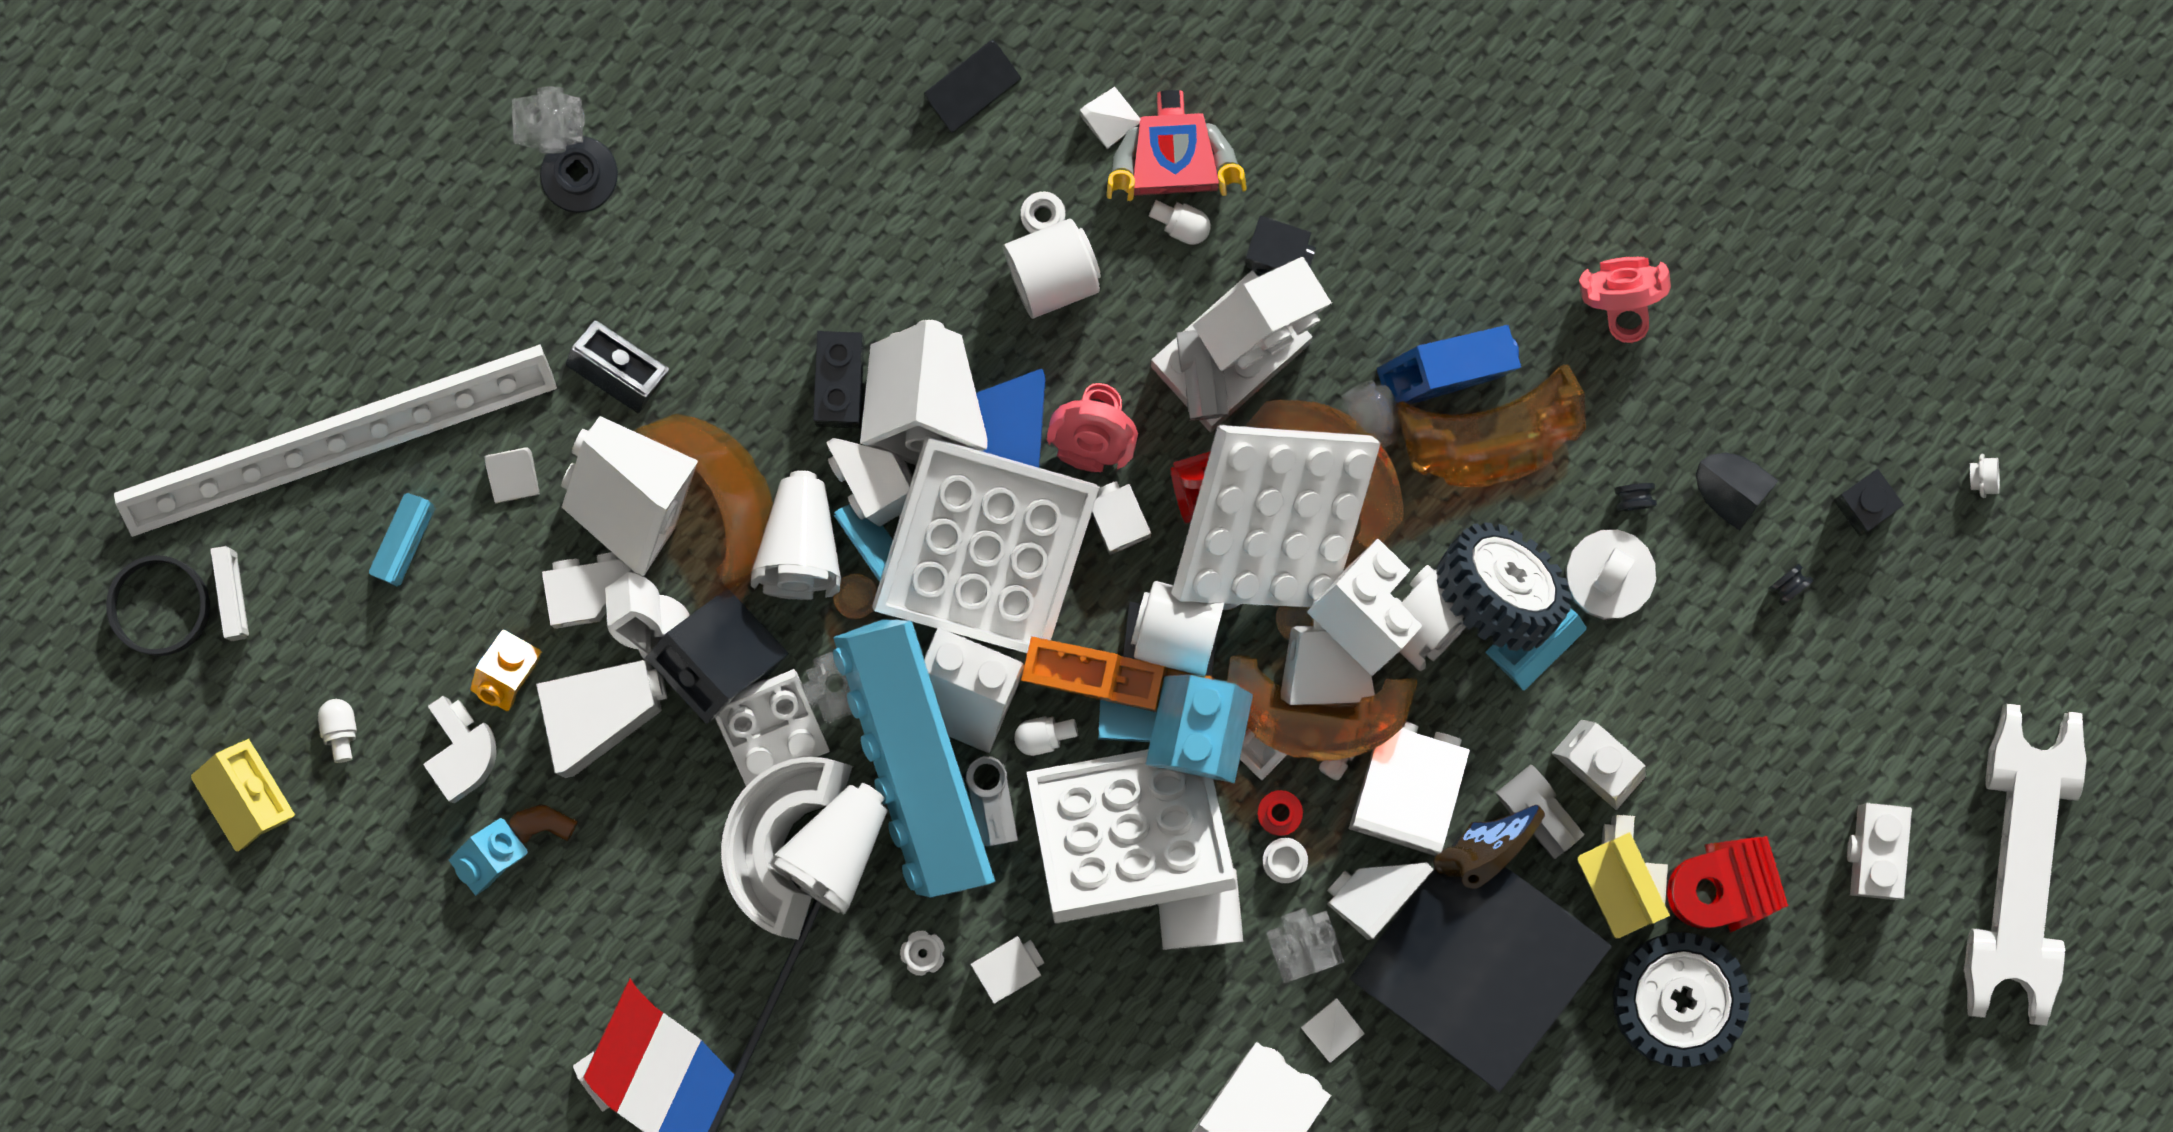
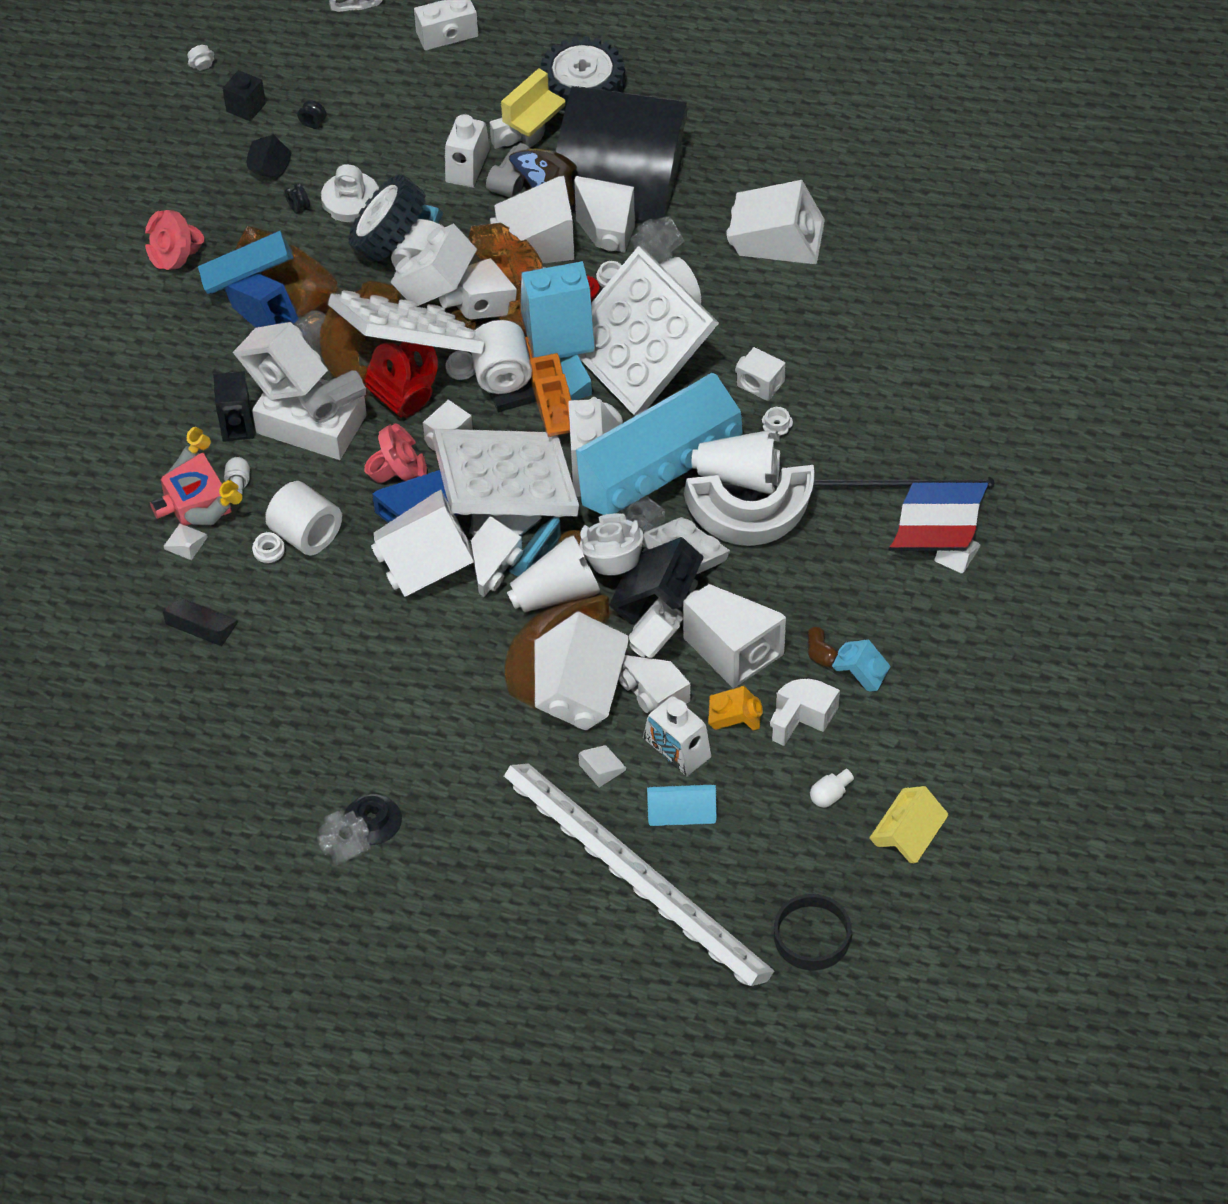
camera: 115 degrees left, 30 degrees down
(229, 593) = (778, 887): white tile -> none
(495, 576) = (673, 731): none -> white torso
(616, 366) = (495, 738): black slope -> none
(792, 622) = (612, 544): none -> white cone
(839, 379) = (437, 603): black brick -> none
(1332, 1030) = (696, 220): white slope -> none
(1519, 365) = (245, 262): none -> dark azure panel
(1743, 880) = (496, 72): red piece -> none

